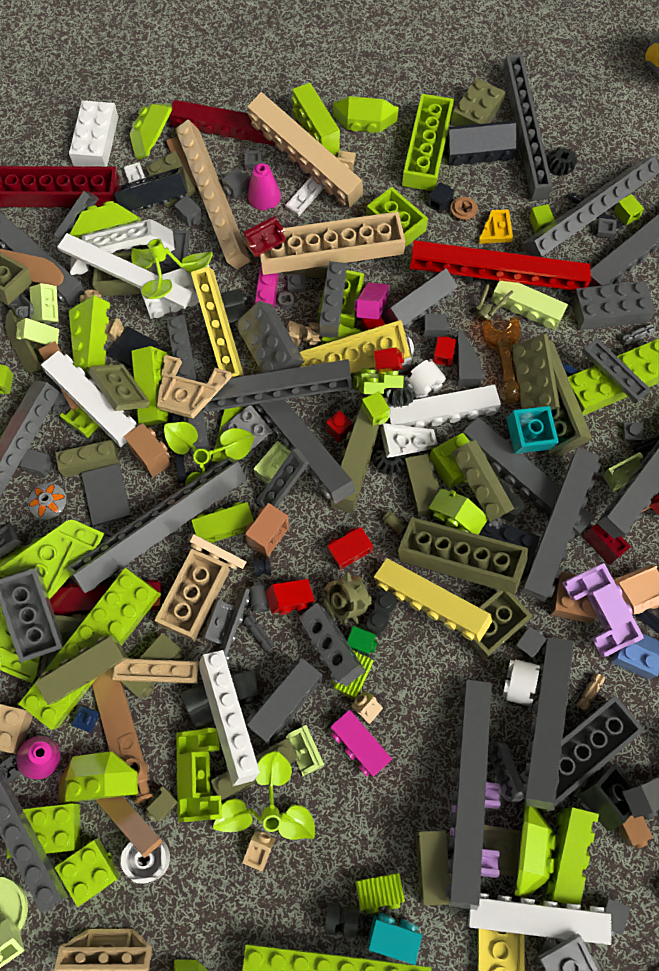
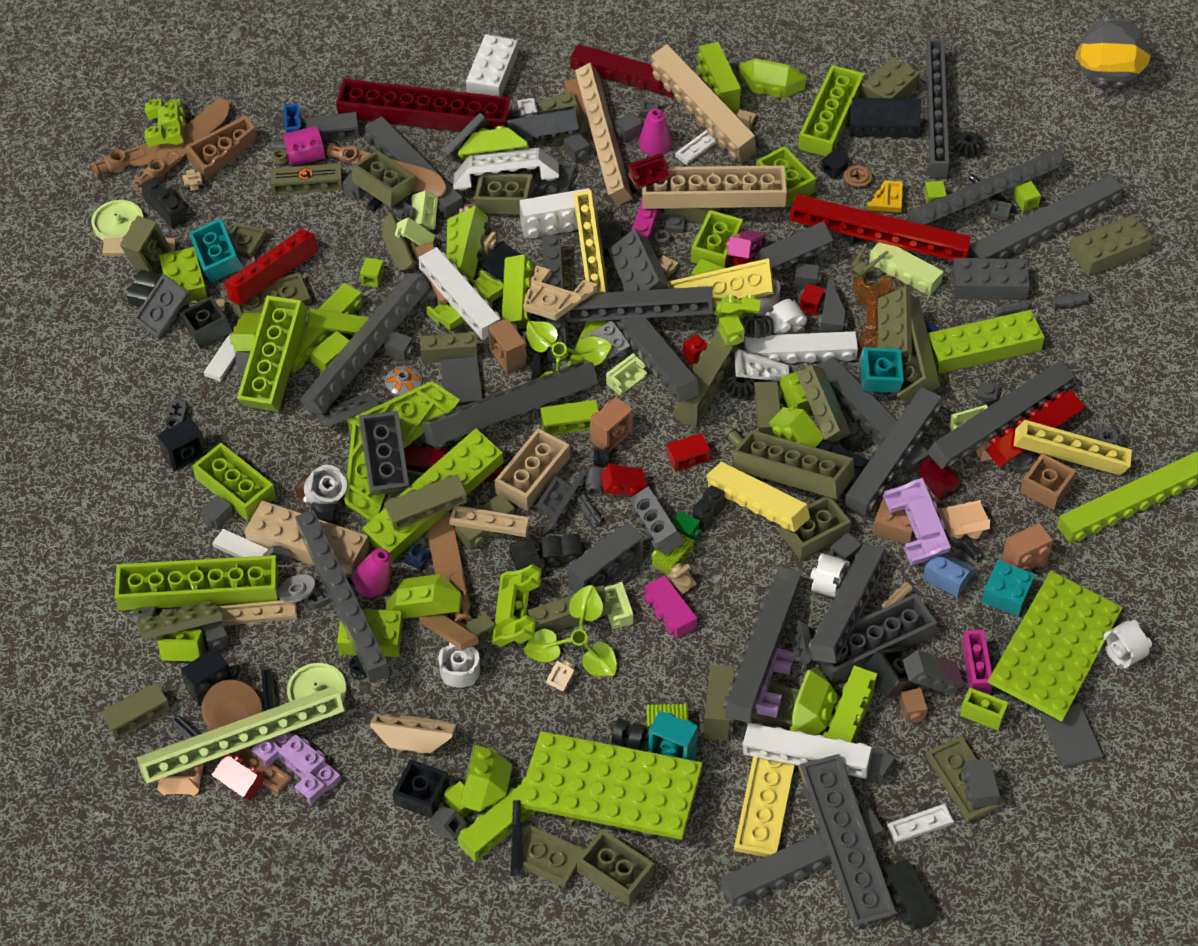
camera: 10 degrees right, 15 degrees down
(87, 872) = (407, 667): lime brick -> none
(119, 387) = (489, 286): olive plate -> none
(120, 268) = (509, 188): white tile -> none
(148, 128) = (548, 67): lime wedge -> none
(156, 253) = (544, 173): lime plant -> none
(216, 552) = (547, 424): plate -> none
(228, 718) = (551, 558): white brick -> none
(283, 479) = (636, 377): dark grey plate -> none
(312, 334) = (683, 268): tan gear -> none
(333, 299) = (707, 236): dark grey brick -> none
(346, 598) = (677, 487): olive brick -> none
(388, 359) = (752, 287): red brick -> none
(616, 370) = (975, 329): dark grey plate -> none

